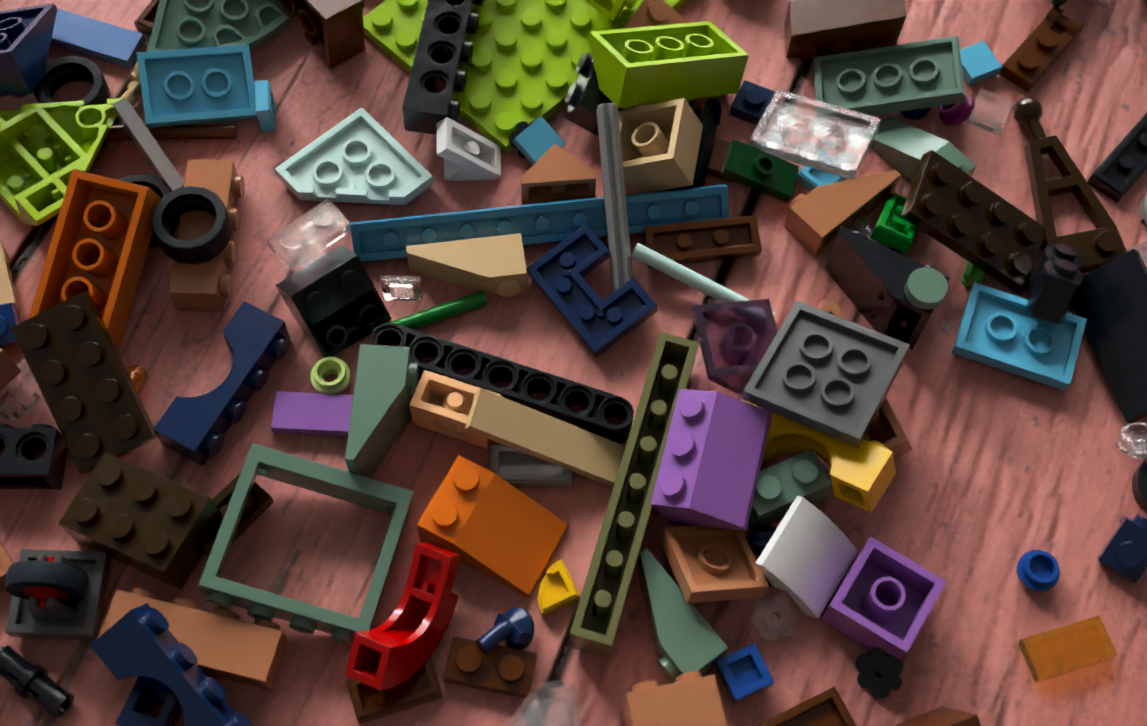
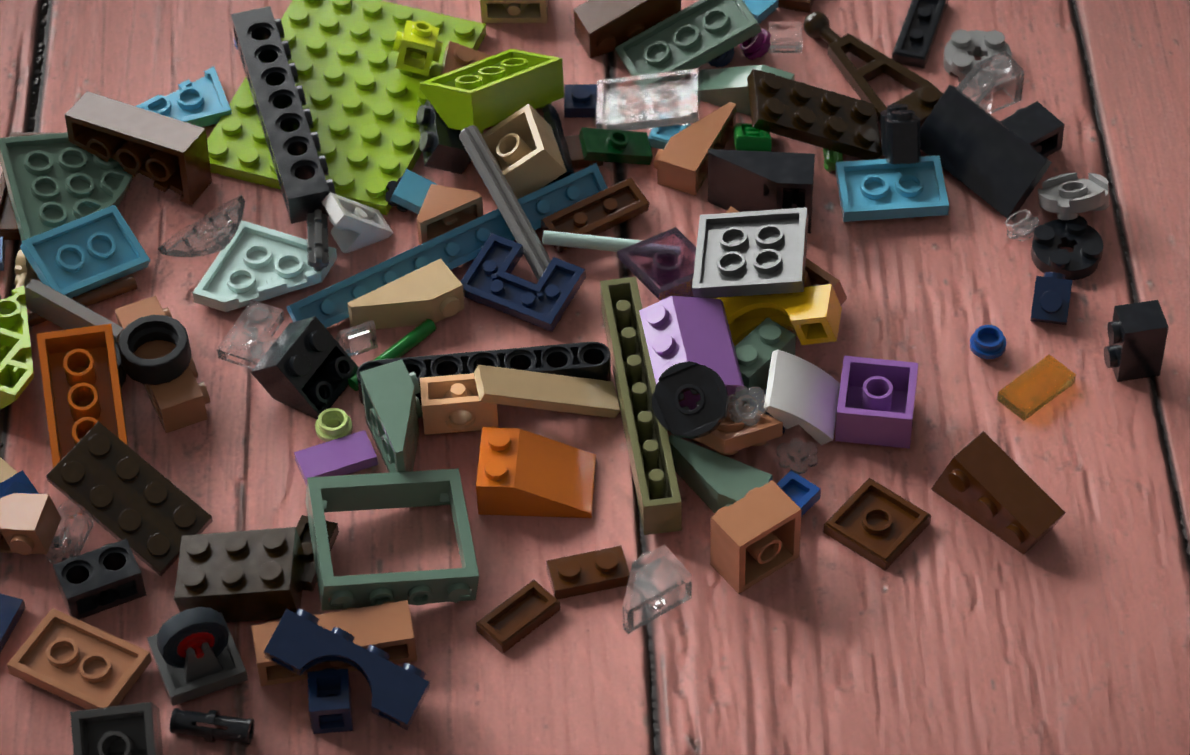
camera: 20 degrees left, 15 degrees down
(198, 423) = (241, 497): dark blue arch -> none
(265, 106) = (154, 250): medium azure tile -> none
(326, 108) = (207, 234): none -> clear brick
(415, 161) = (317, 240): none -> dark grey axle
(415, 628) = (513, 552): red arch -> none
(512, 628) = (592, 536): dark blue plate -> none
(526, 470) = (547, 423): light grey tile -> none
(556, 589) = (612, 501): yellow tile -> none
(658, 547) = (670, 392): none -> black plate
(730, 543) = (743, 397): none -> clear plant
(879, 684) = (889, 455): black plant -> none
(926, 288) = (799, 165): sand green tile -> none

